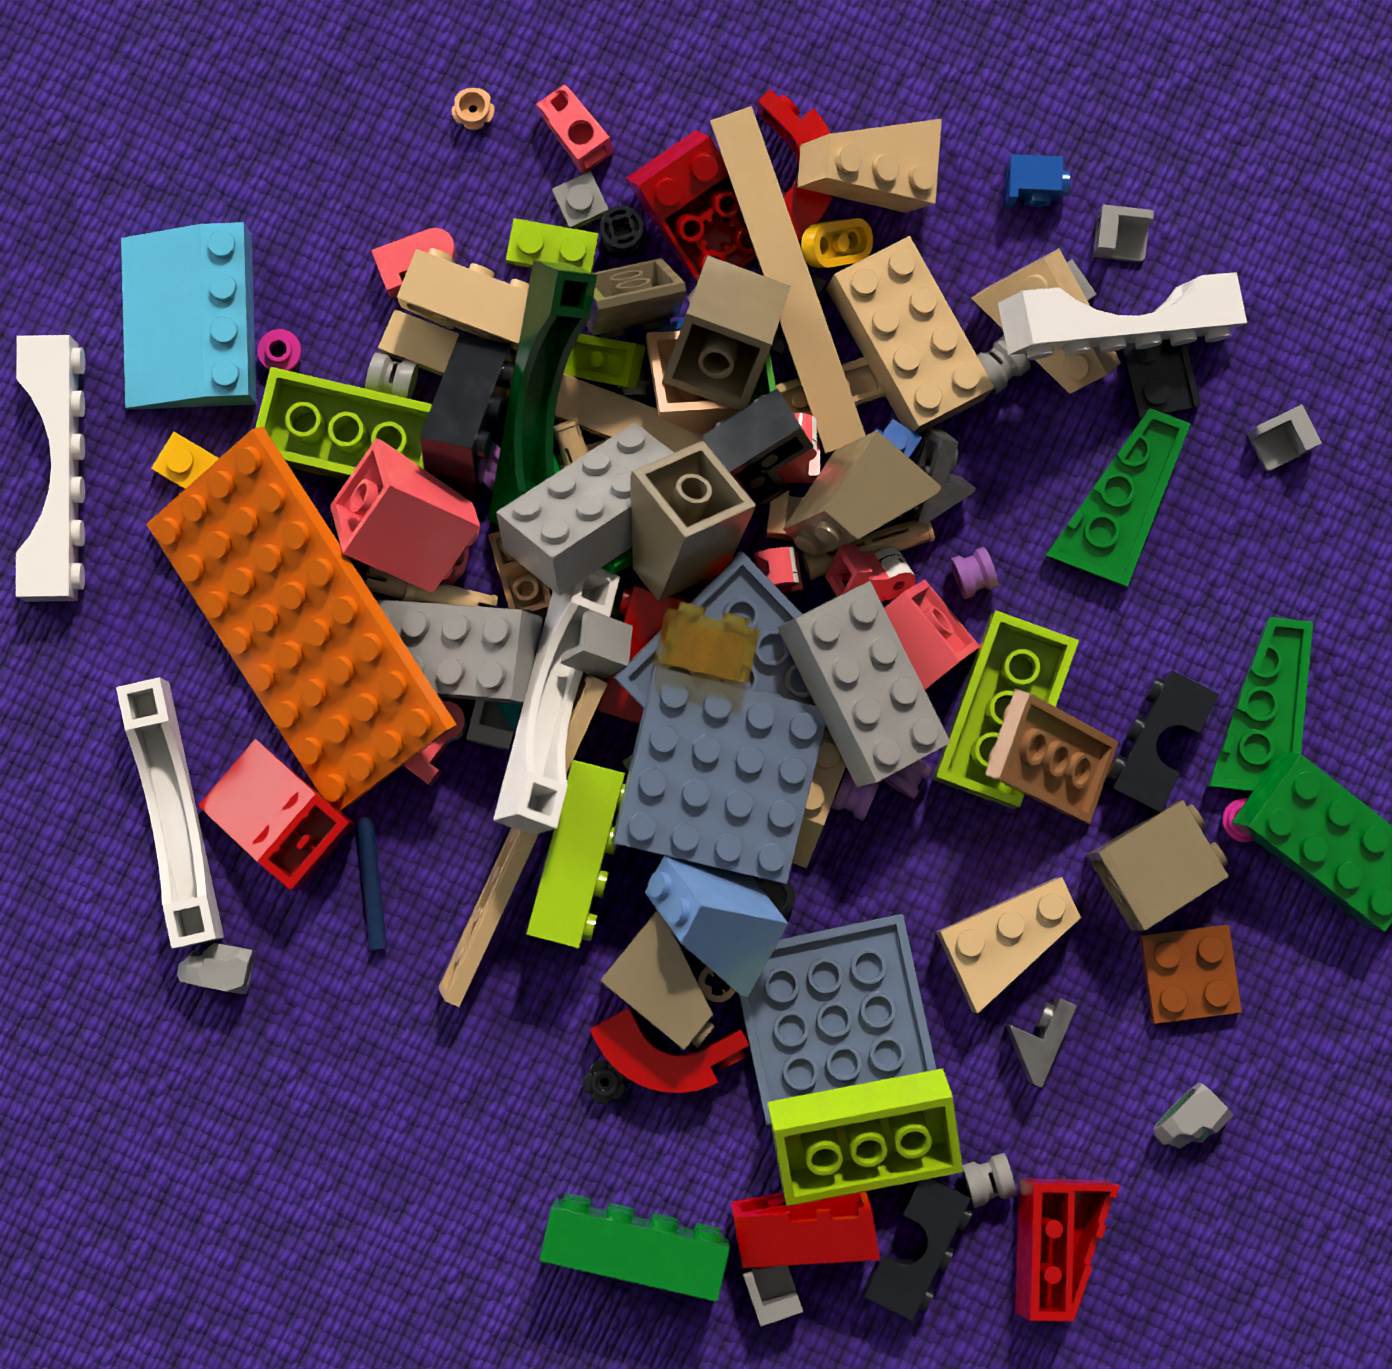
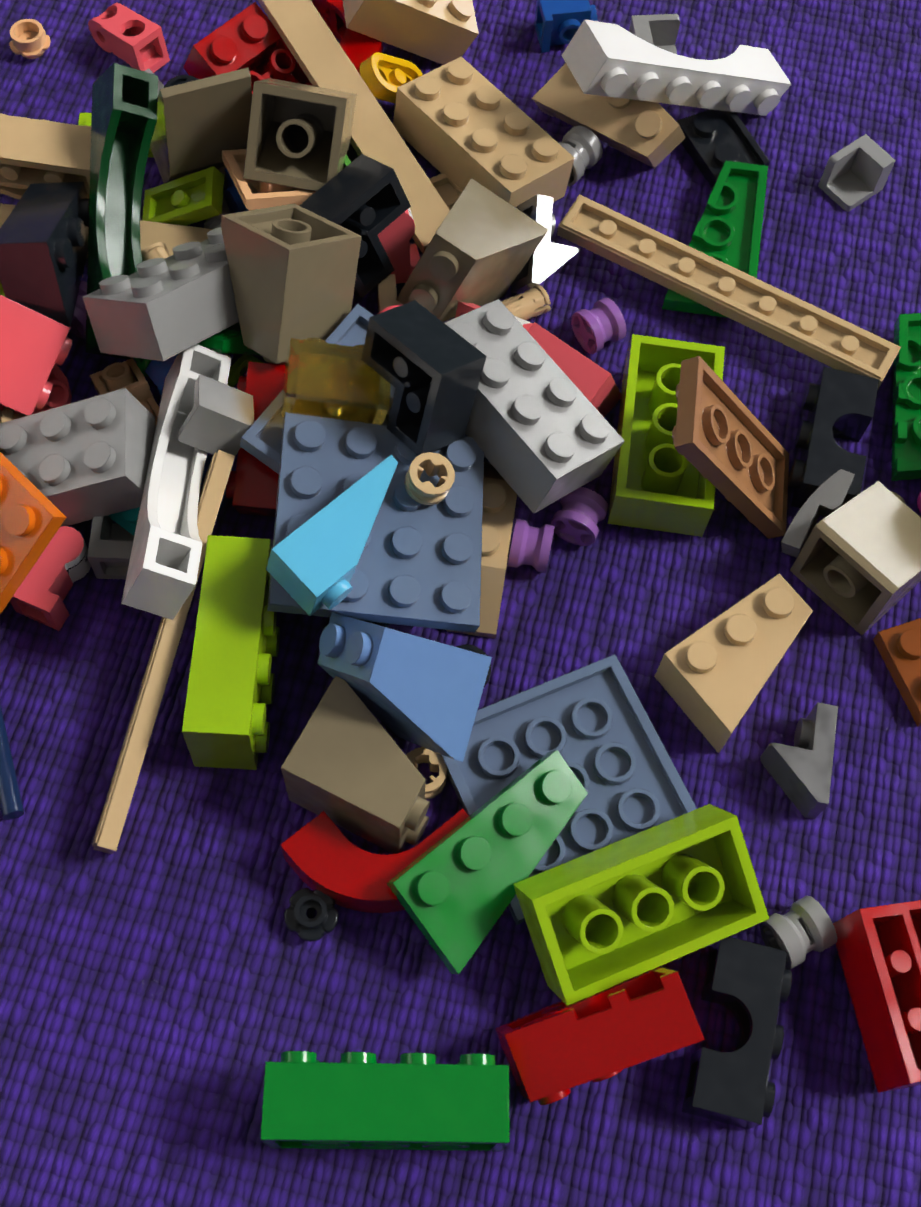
camera: 15 degrees left, 20 degrees down
(674, 811) = (325, 550): none -> medium azure slope
(736, 1084) = (469, 874): none -> green wing
(763, 765) = (434, 465): none -> tan bush
(772, 1293) = (572, 1133): light grey panel -> none
(784, 663) = (432, 375): none -> black brick
(1106, 562) = (727, 290): none -> tan tile
(1128, 812) = (823, 501): none -> light grey slope

